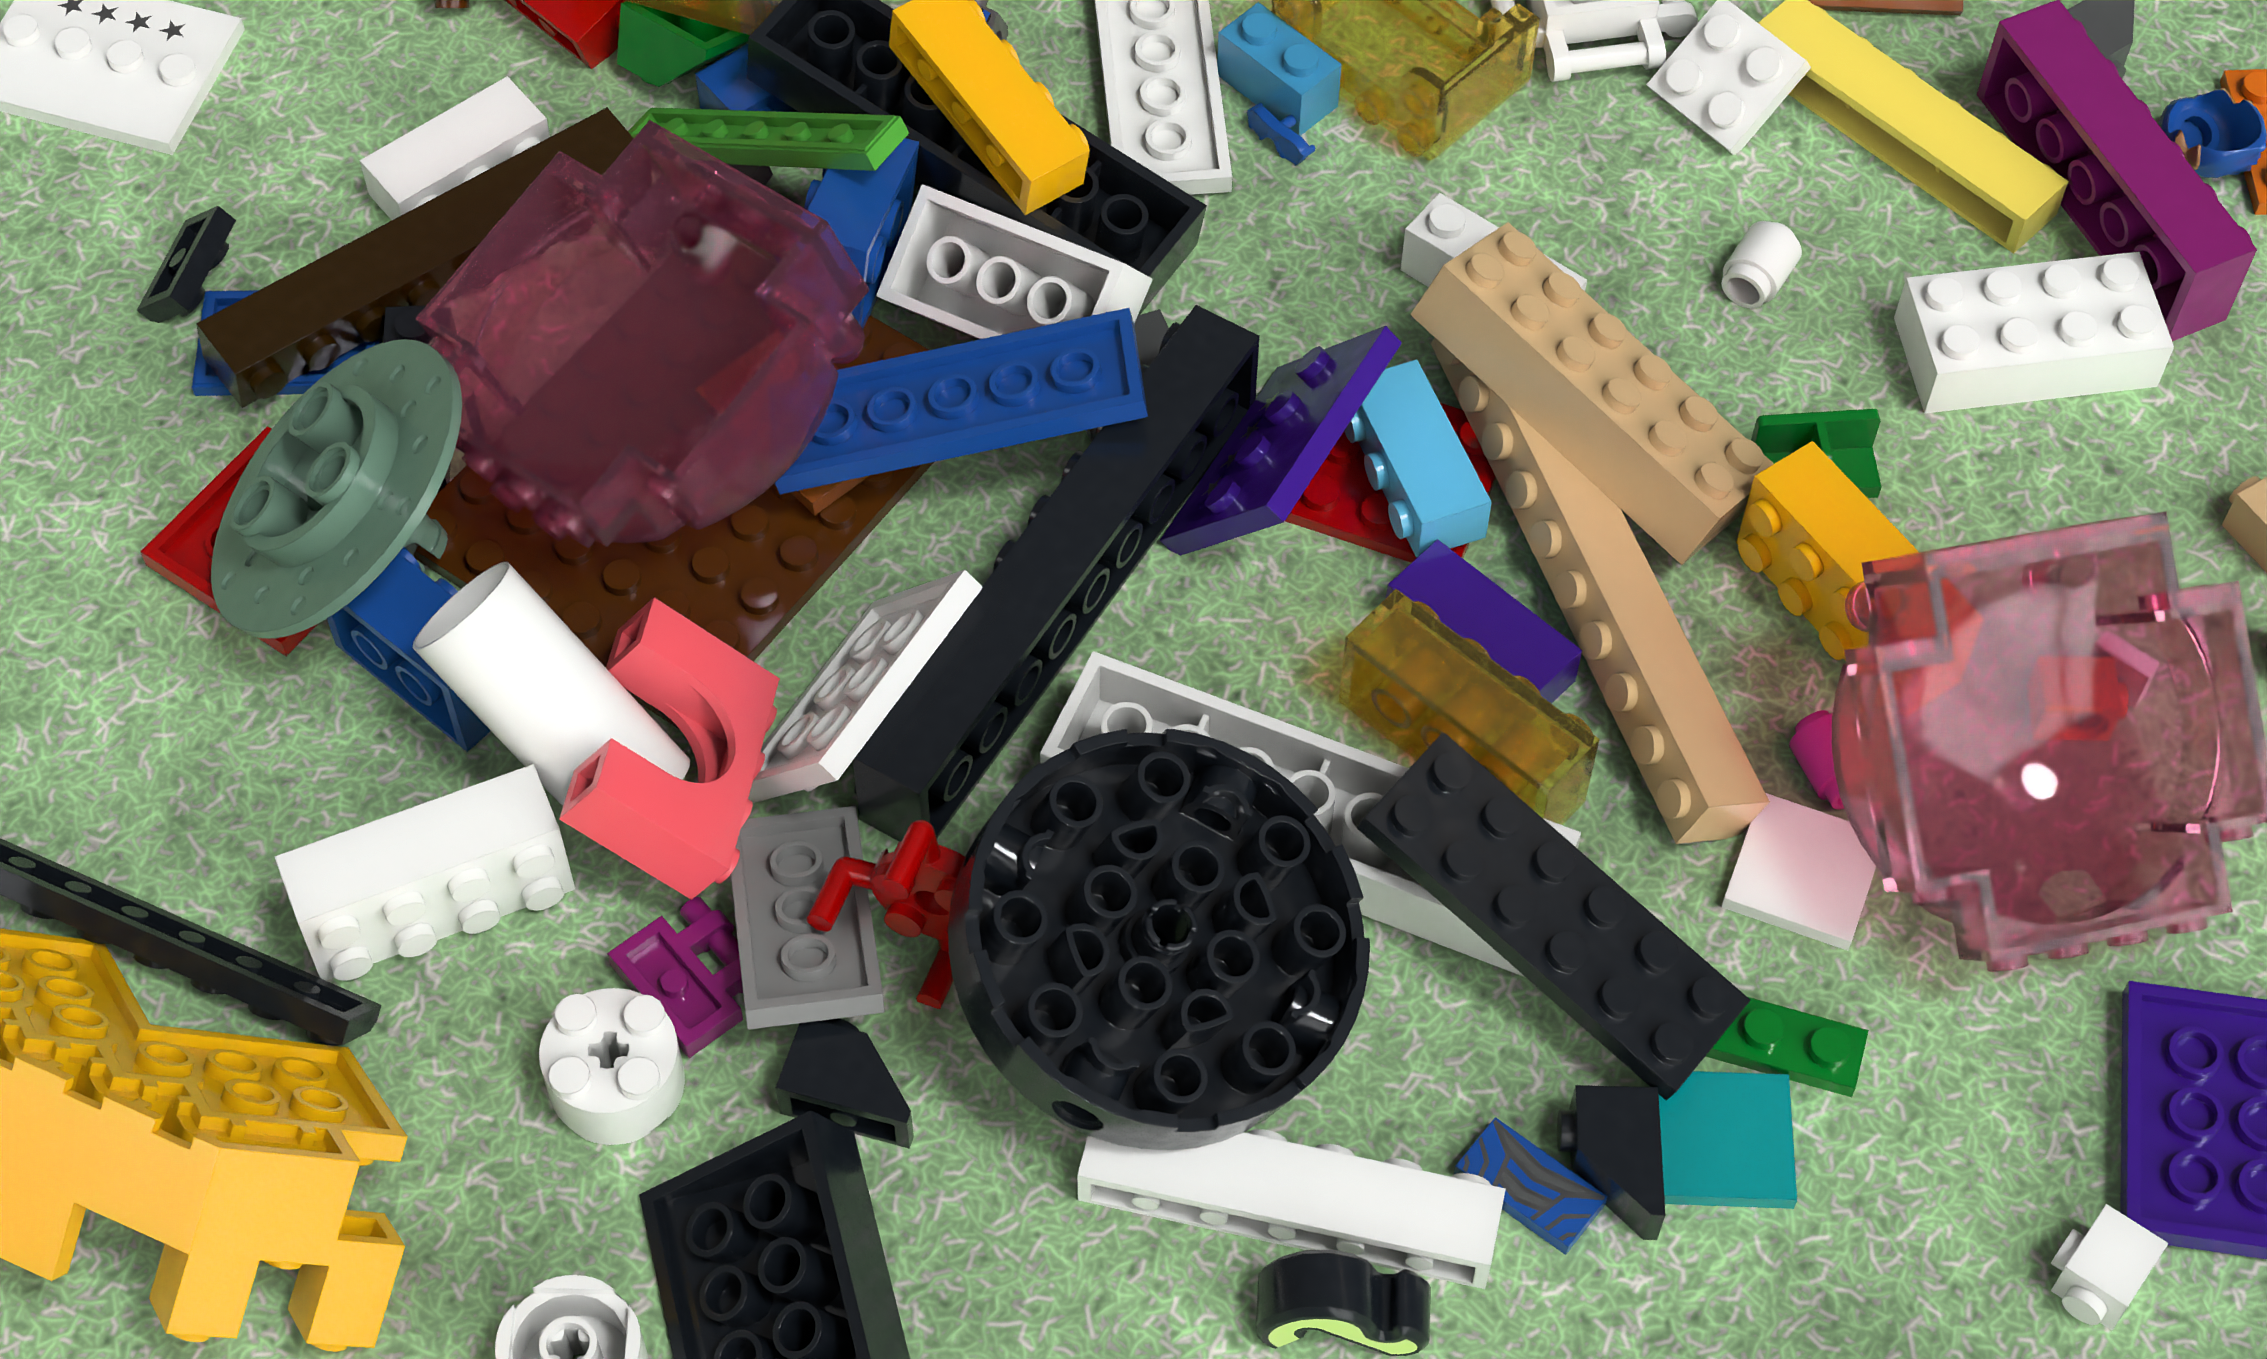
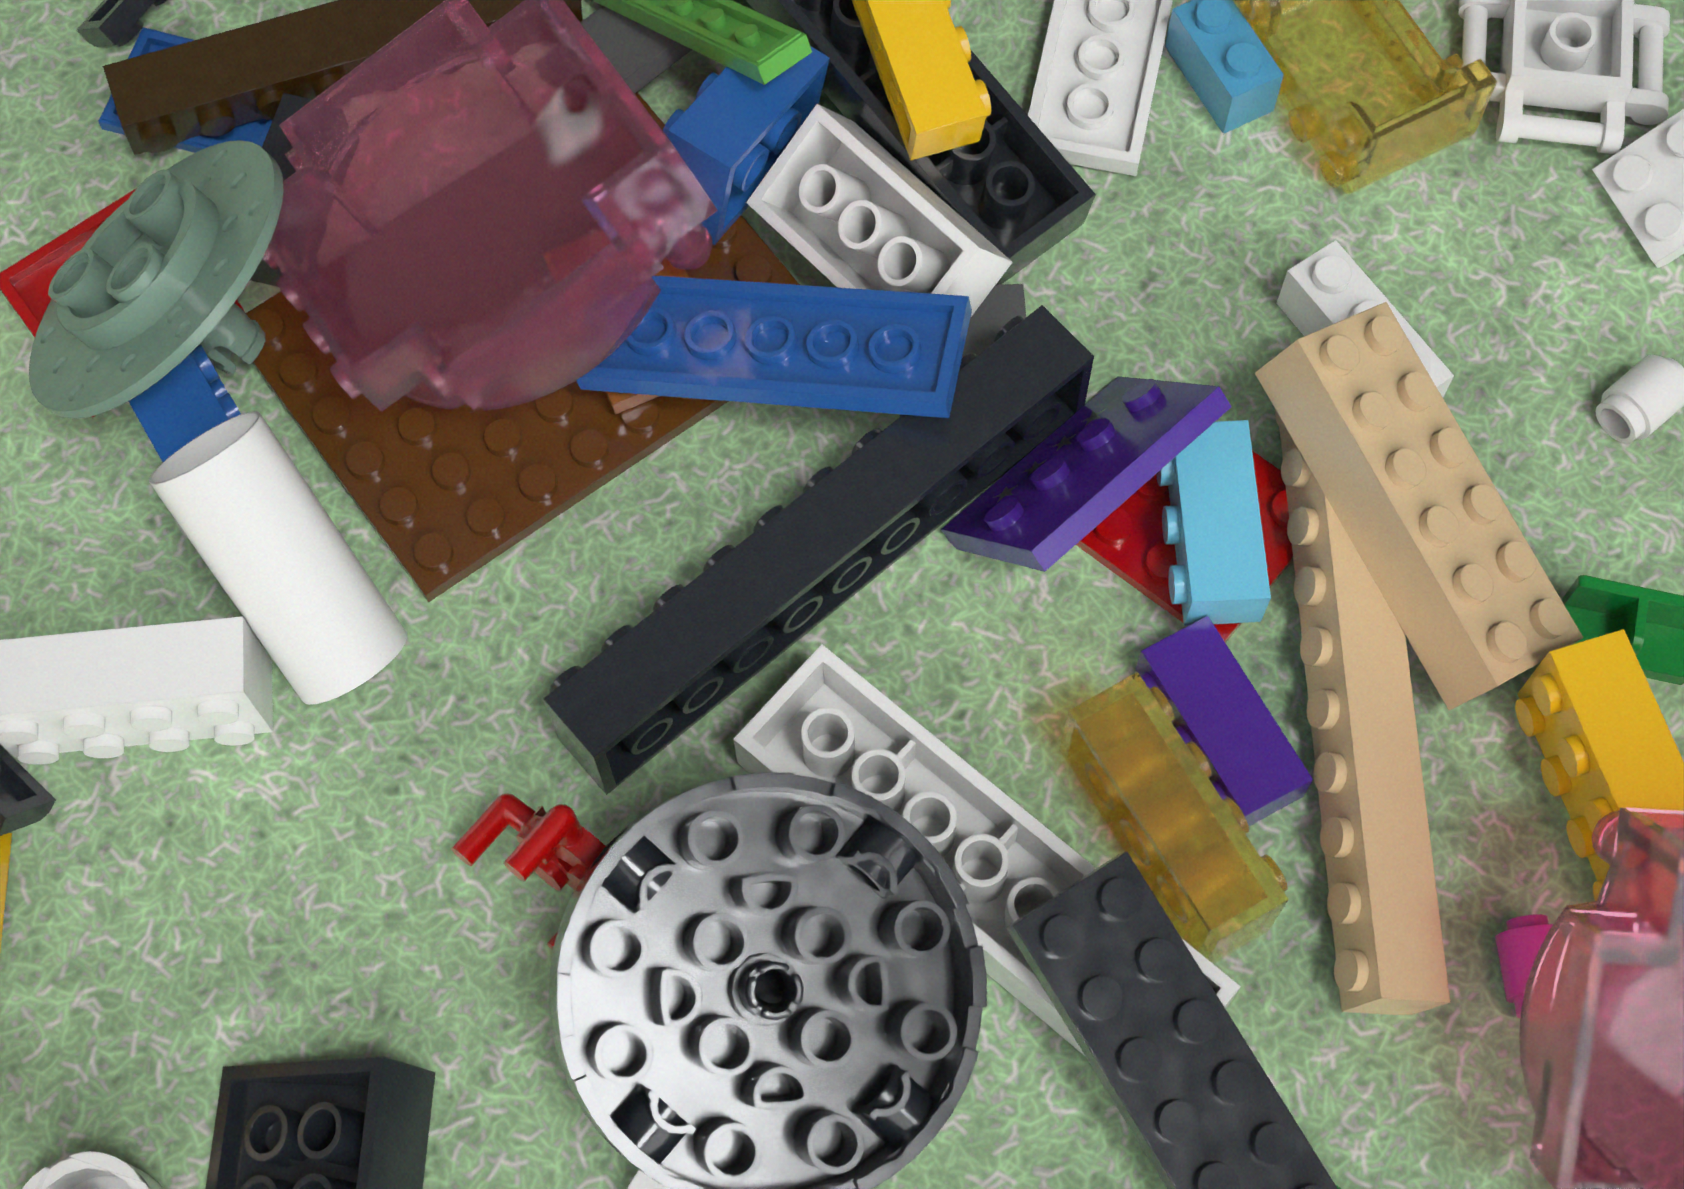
camera: 20 degrees right, 10 degrees up
(603, 1031) = (221, 899): white brick -> none
(667, 967) = (325, 863): magenta plate -> none
(723, 708) = (455, 598): coral arch -> none
(785, 963) = (421, 892): light grey plate -> none
(844, 1079) = (442, 1014): black slope -> none
(860, 685) = (584, 617): white plate -> none
(1287, 142) = (1206, 136): blue piece -> none
(1802, 873) = (1459, 1079): white tile -> none

